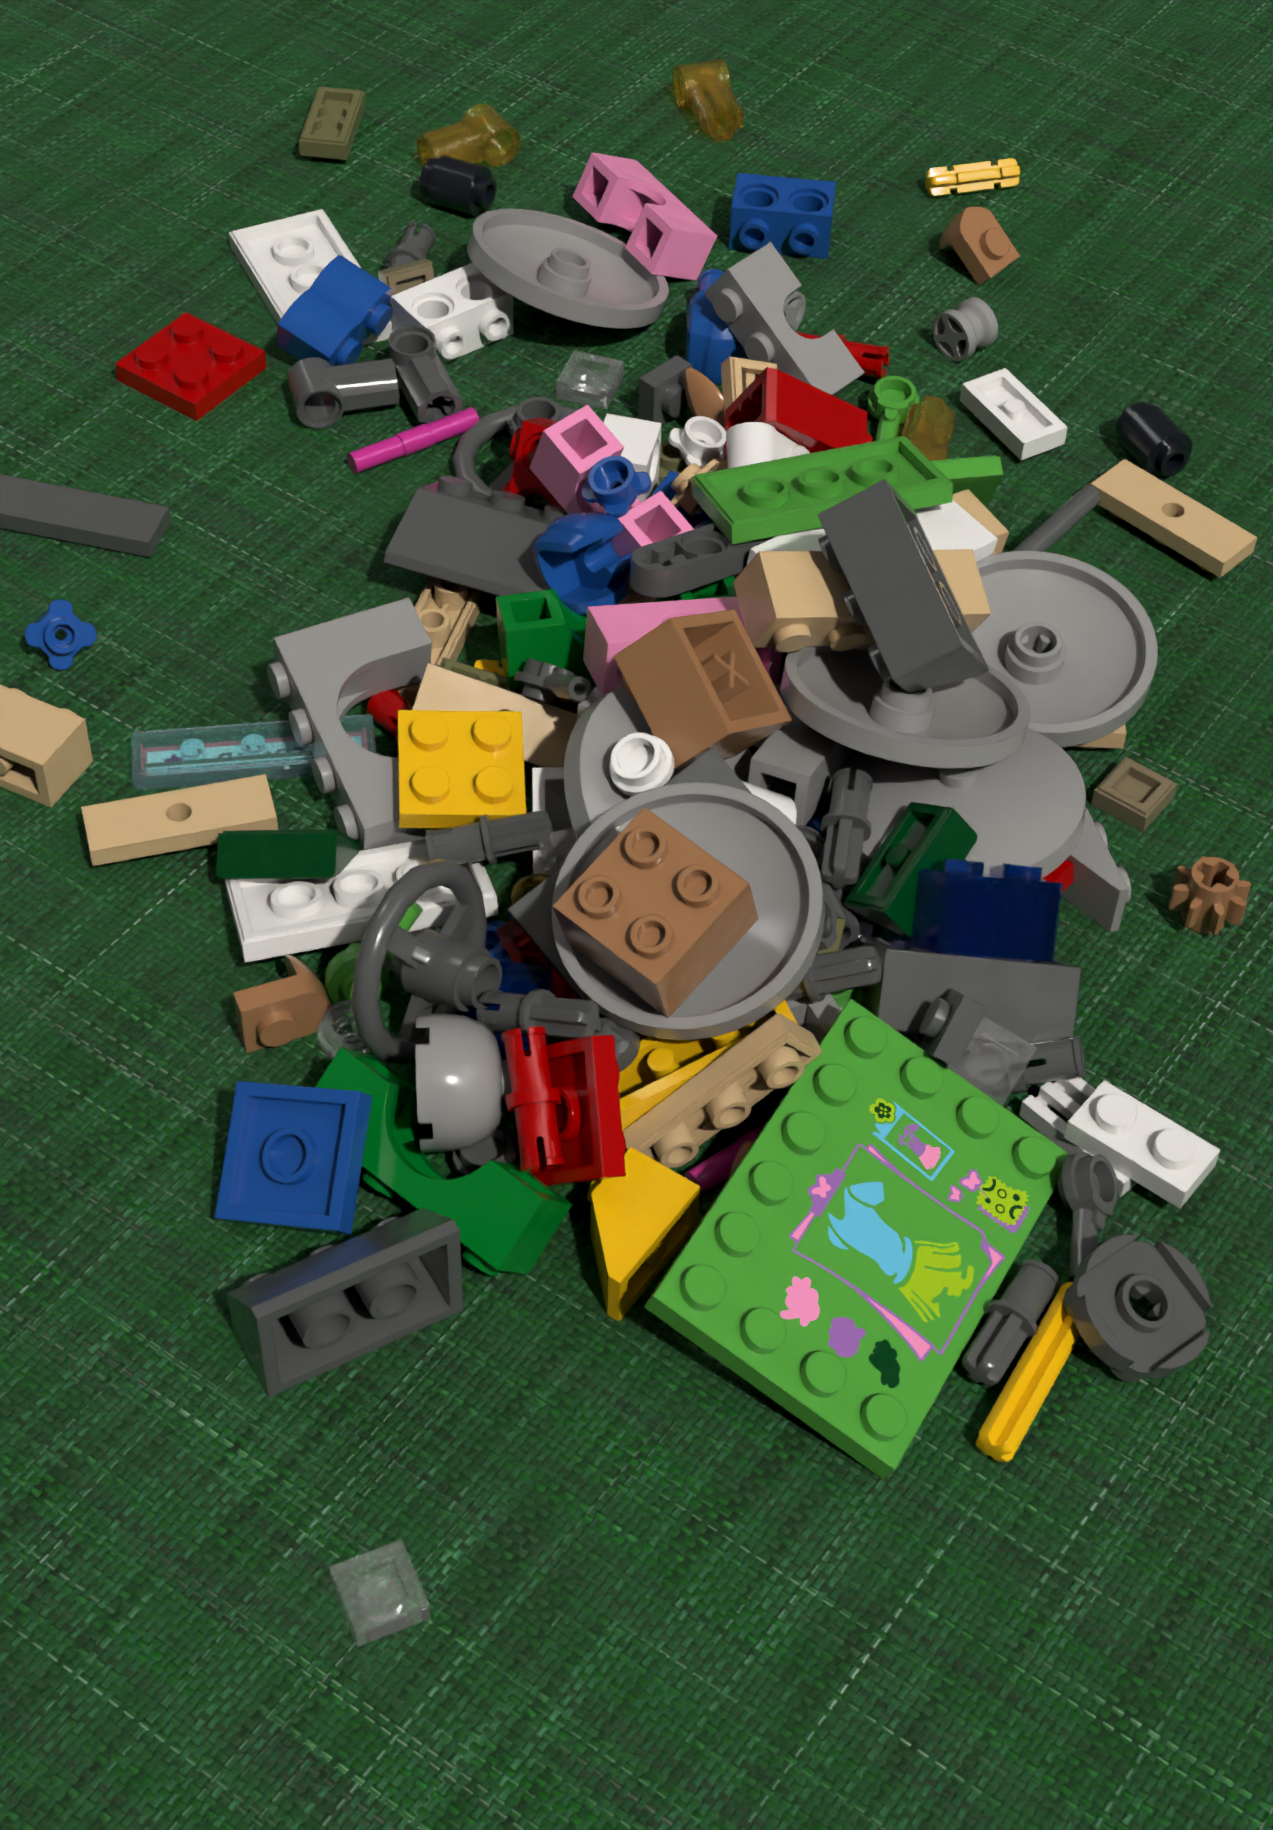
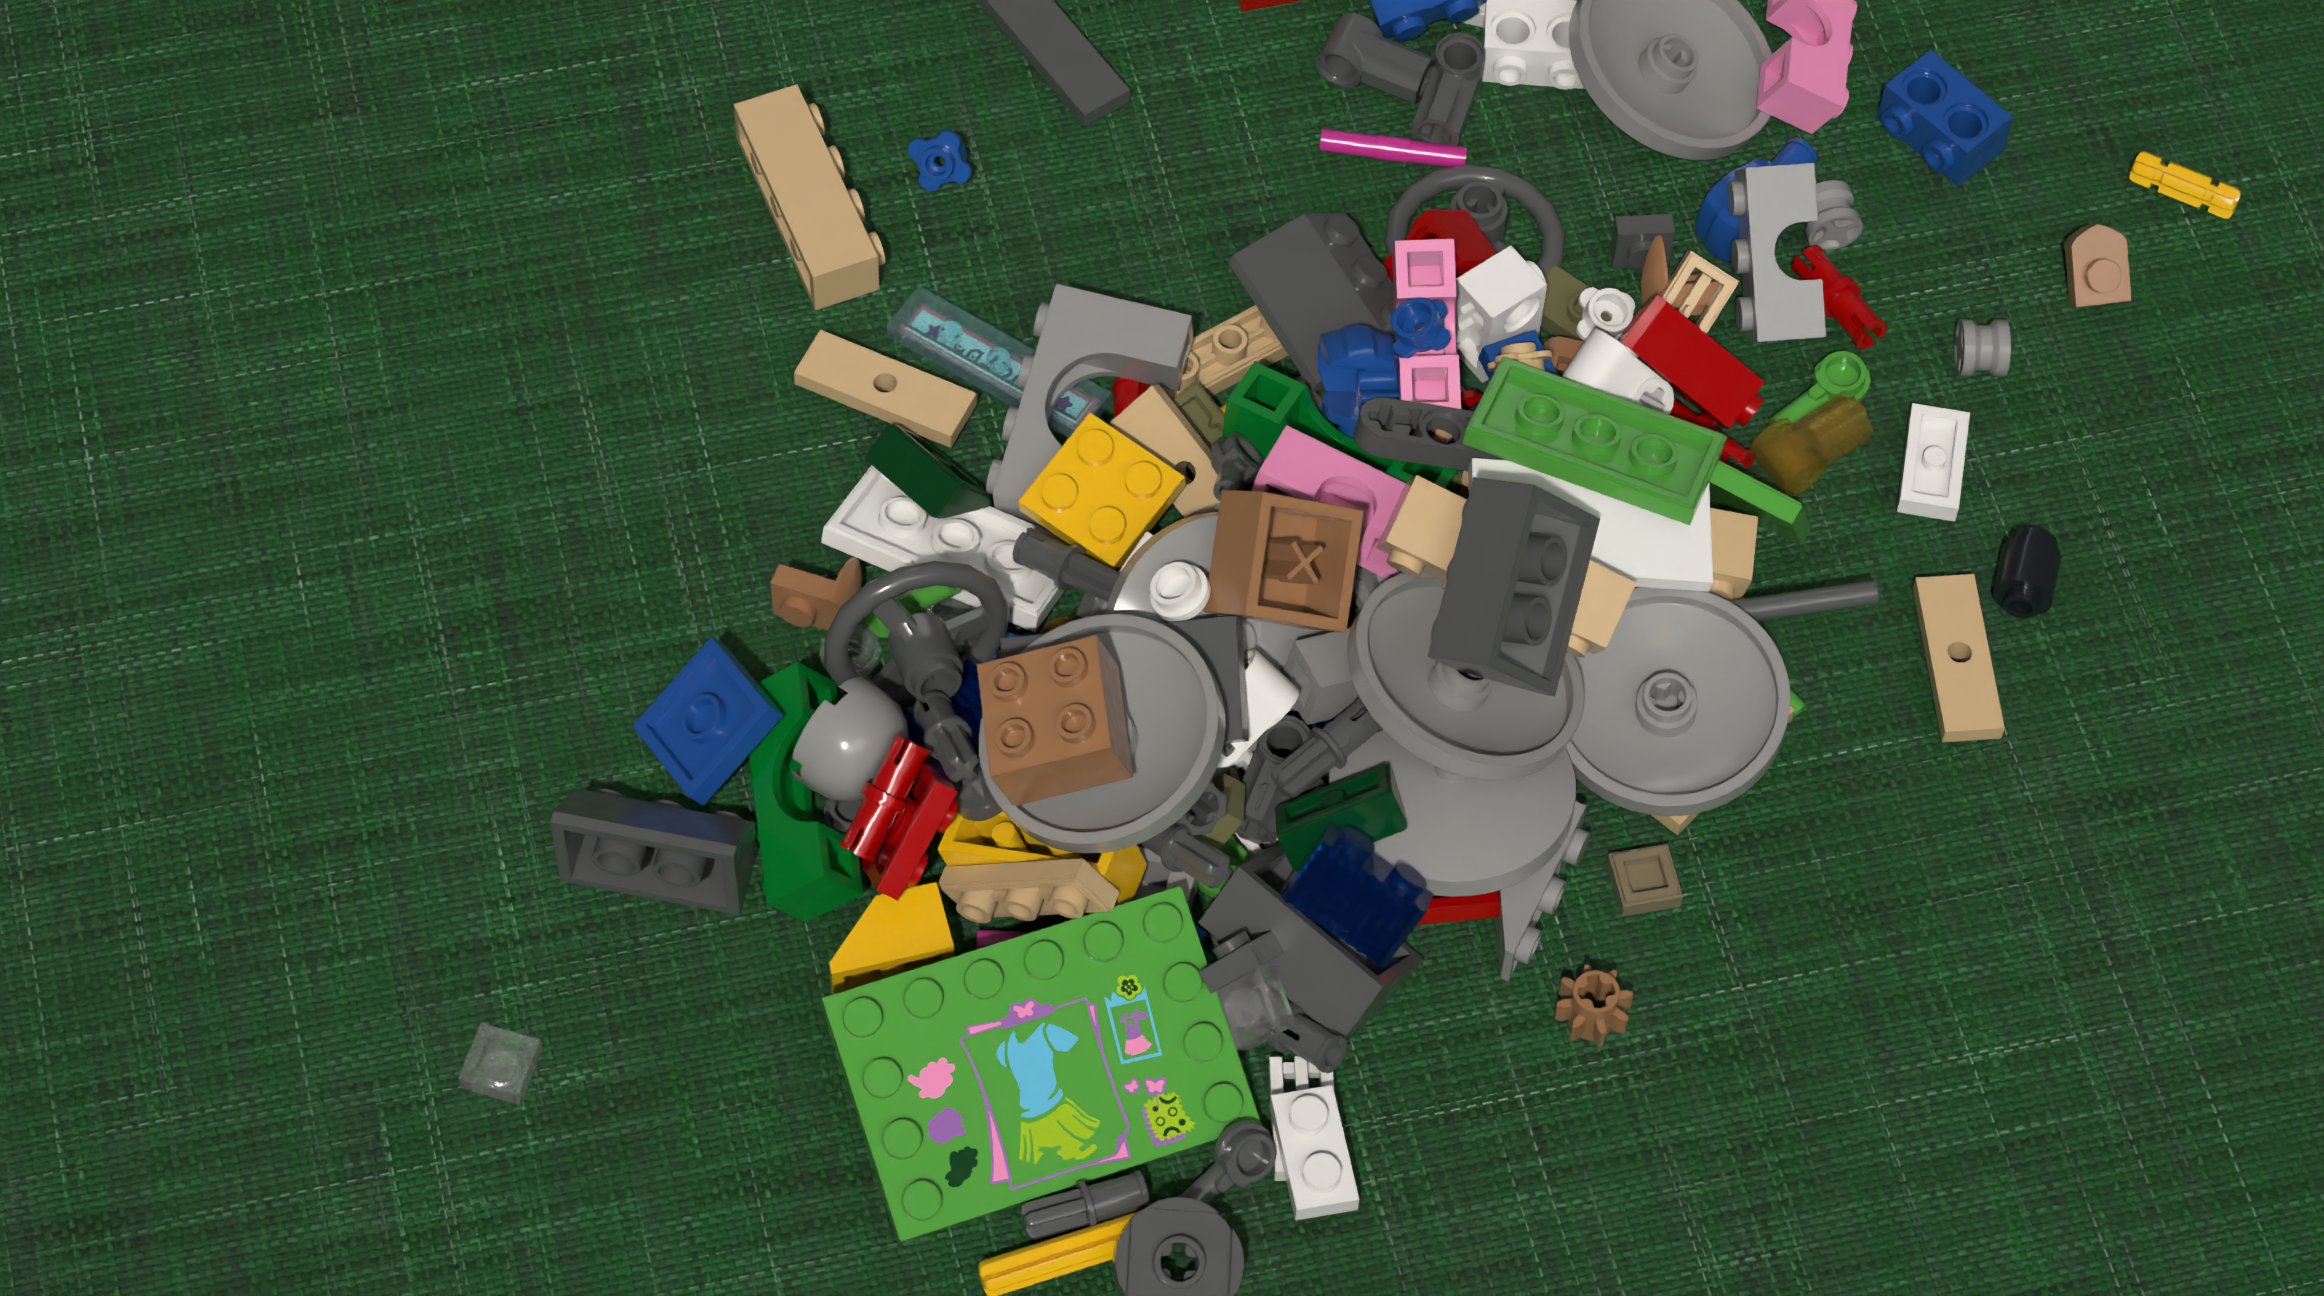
camera: 40 degrees right, 10 degrees up
(589, 379) = (1594, 184): clear plate -> none

